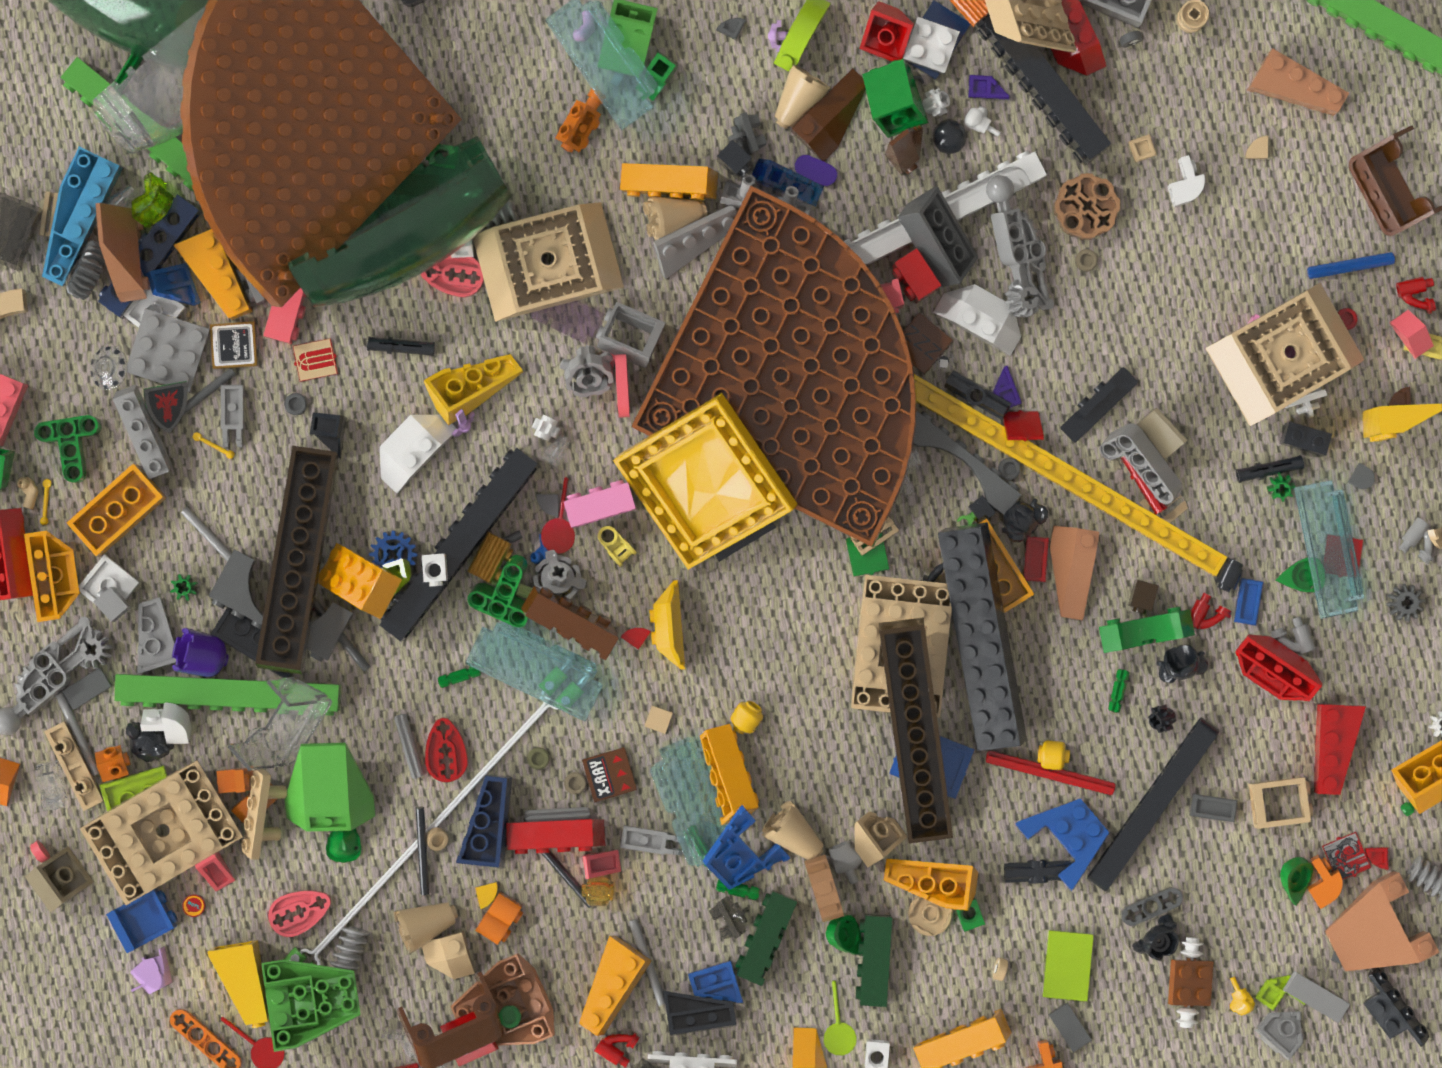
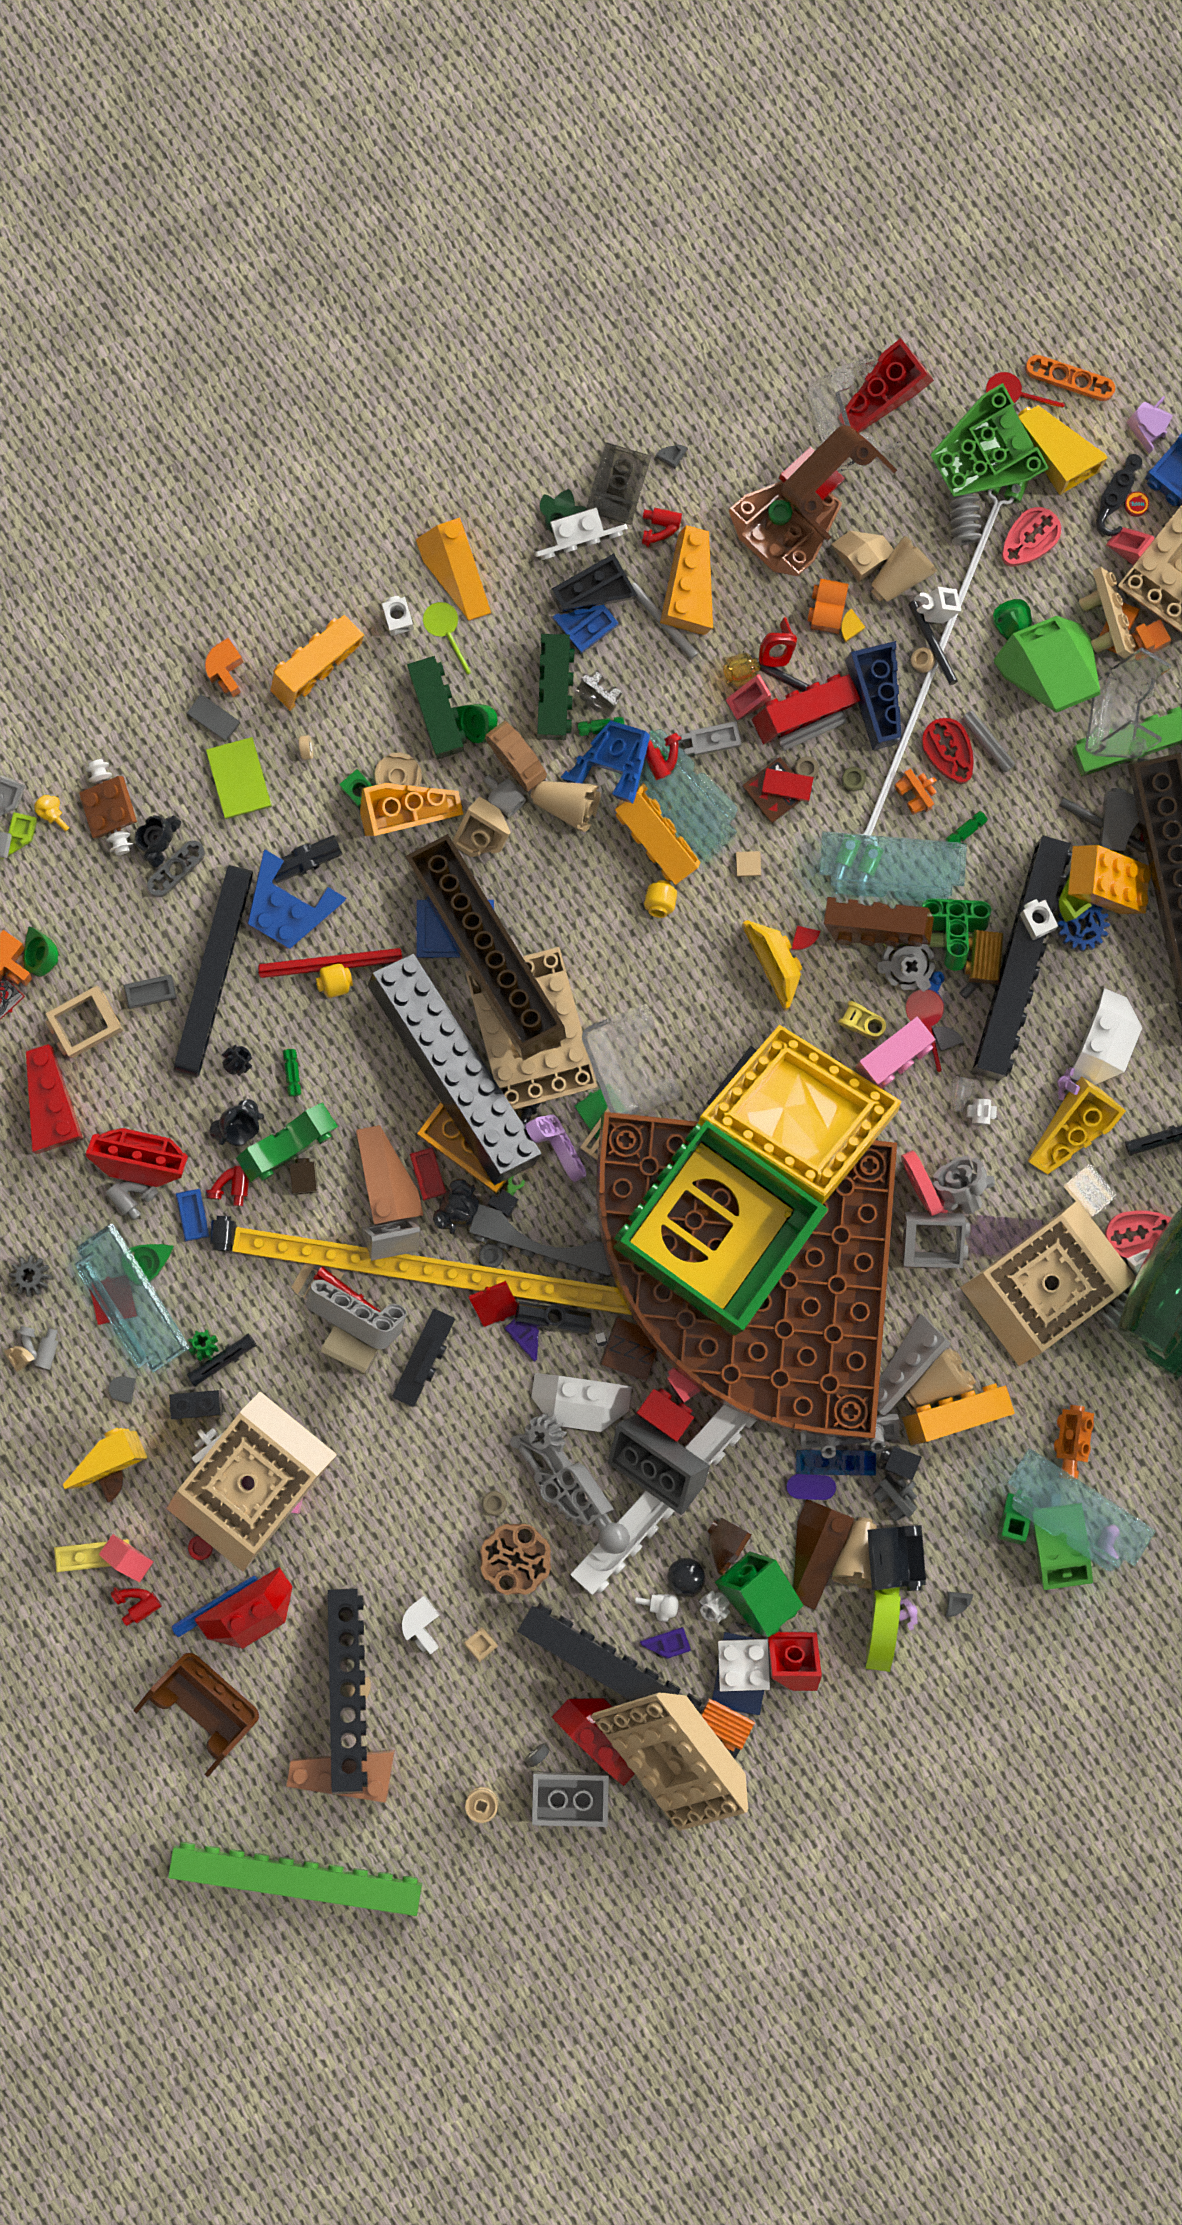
camera: 155 degrees right, 5 degrees down
(207, 921) = (1116, 493): none -> black piece
(404, 880) = (939, 605): none -> white brick
(480, 325) = (1090, 1190): none -> clear piece
(488, 715) = (922, 800): none -> orange hips
(561, 904) = (772, 639): none -> red piece
(598, 774) = (787, 785): none -> red tile
(704, 837) = (655, 760): none -> red plant
(769, 82) = (897, 1557): none -> black door
(786, 396) = (760, 1216): none -> door
(838, 583) = (620, 1064): none -> clear windscreen
(916, 553) = (550, 1128): none -> lavender beam
(1089, 514) = (391, 1239): none -> light grey slope
(1250, 228) = (337, 1602): none -> black brick
(1325, 249) = (249, 1612): none -> red wedge

